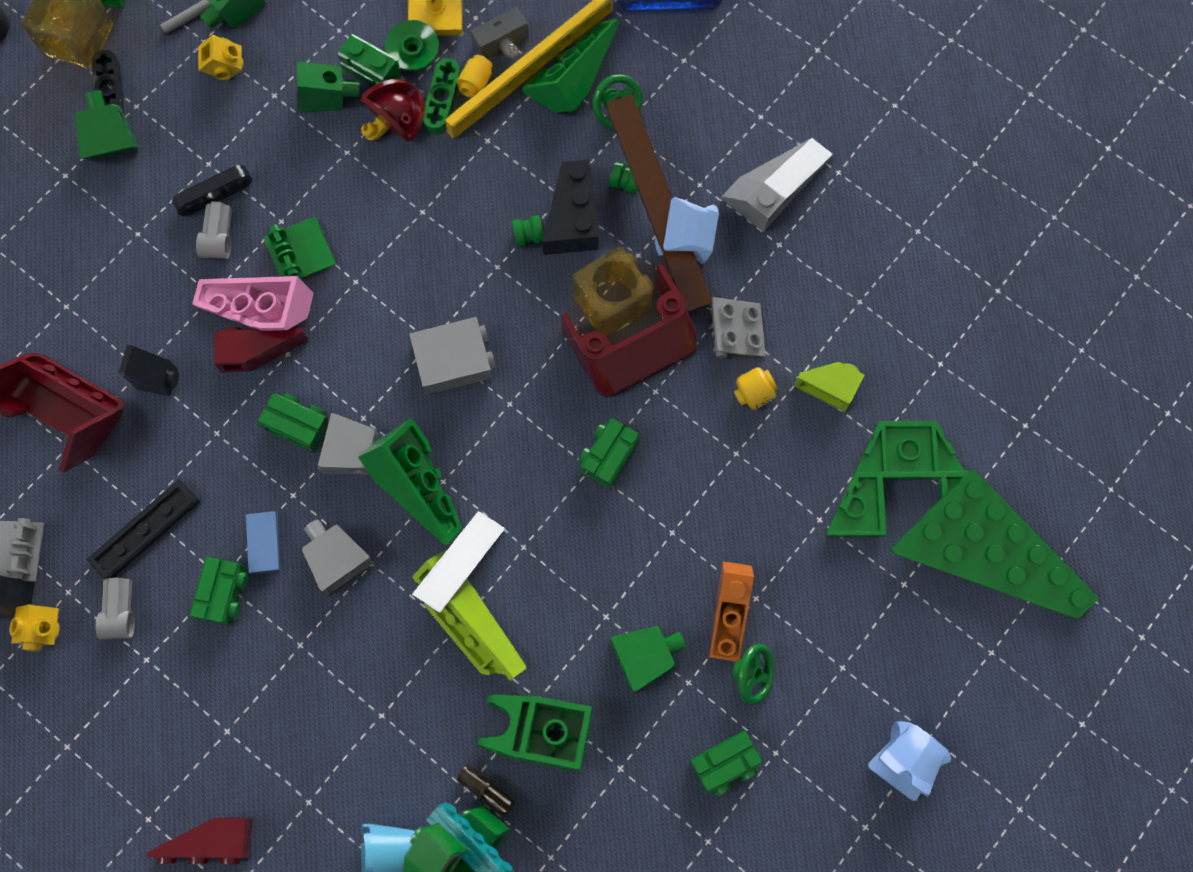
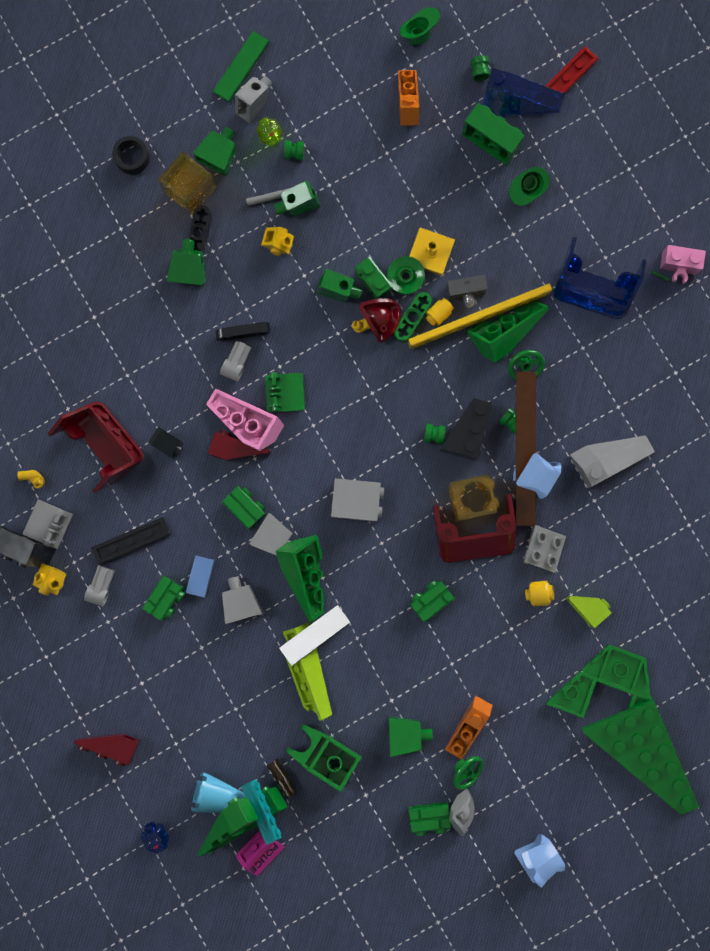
camera: 25 degrees right, 10 degrees up
(770, 736) = (462, 812): none -> light grey hat

